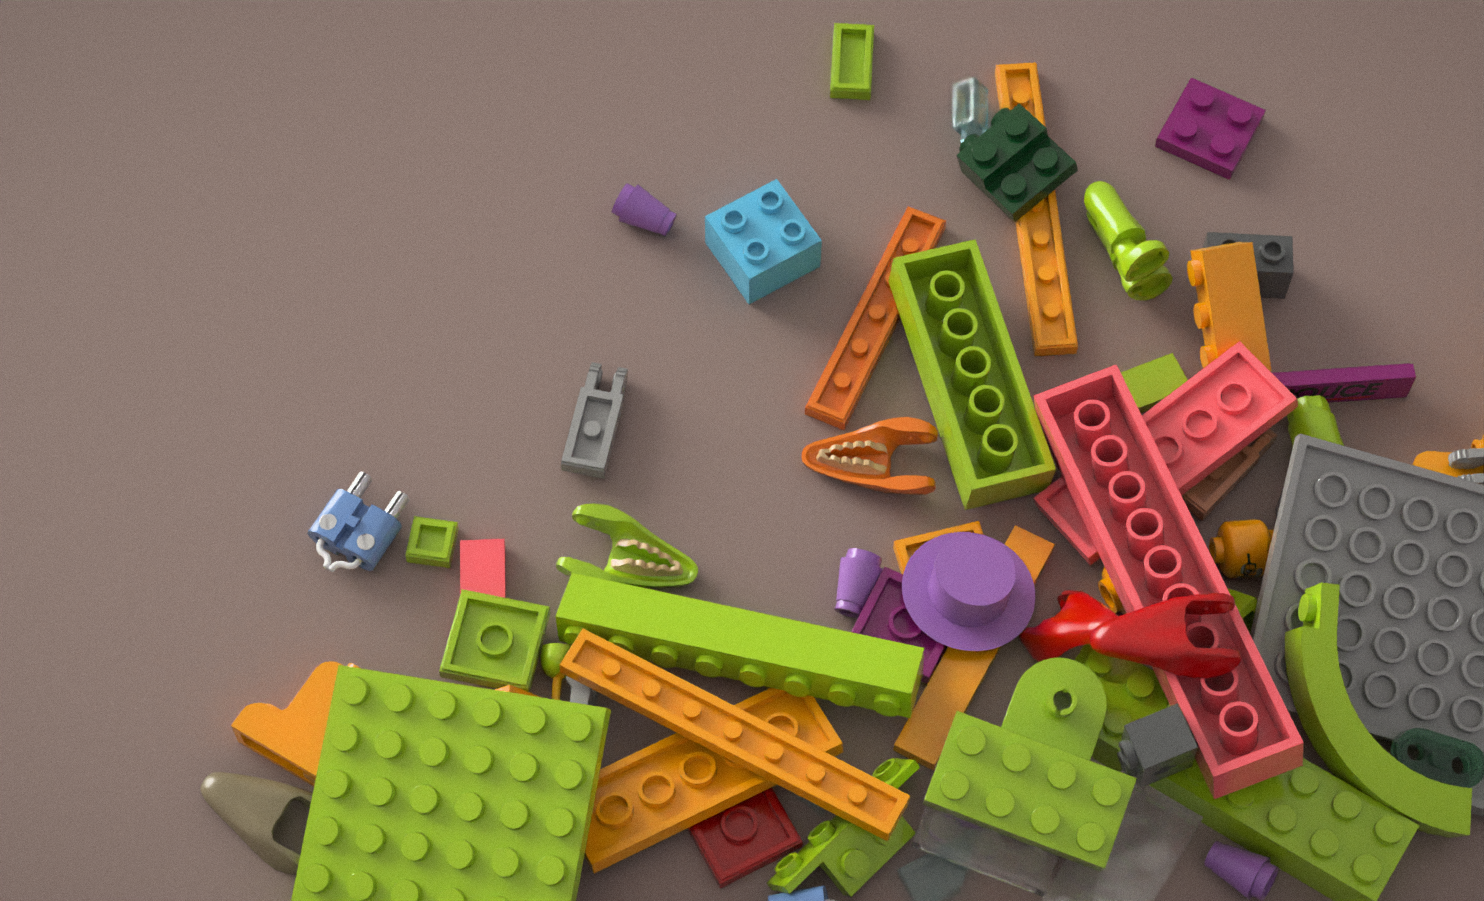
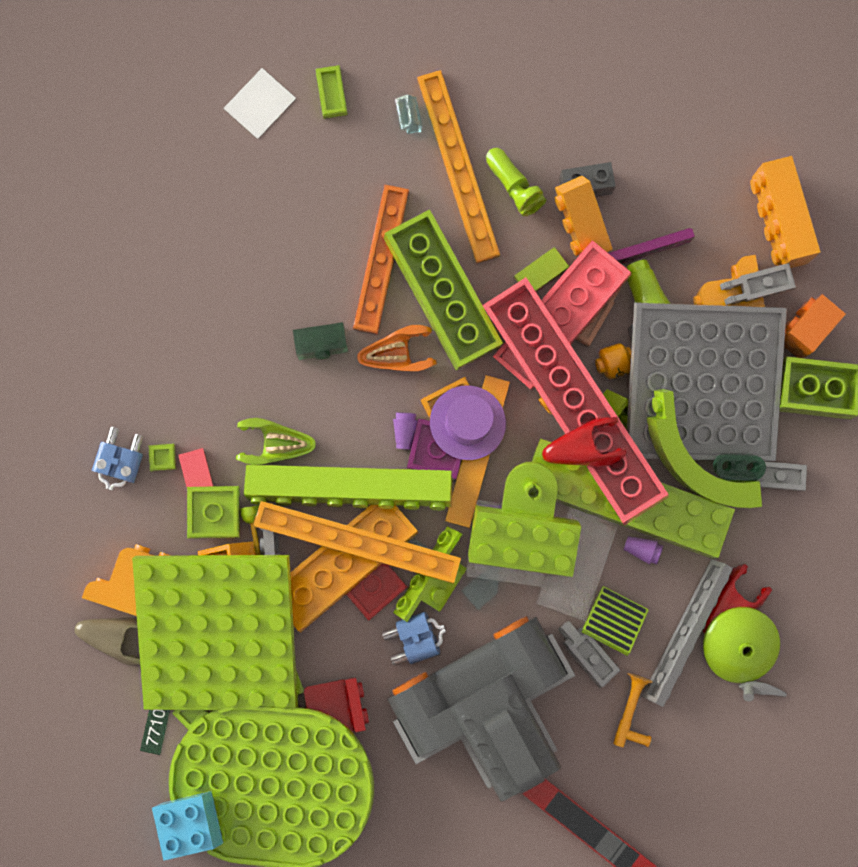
camera: 15 degrees left, 20 degrees up
(594, 424) = (236, 365): light grey hinge -> none
(643, 210) = (231, 222): medium lavender cone -> none
(732, 56) = (259, 103): none -> white sticker
(745, 412) = (320, 341): none -> clear green brick
(763, 241) = (305, 228): medium azure brick -> none
(1015, 161) = (442, 144): dark green plate -> none
(1068, 628) = (532, 436): red animal -> none
(1157, 746) = (588, 507): dark grey brick -> none
(1210, 128) = (551, 91): magenta plate -> none

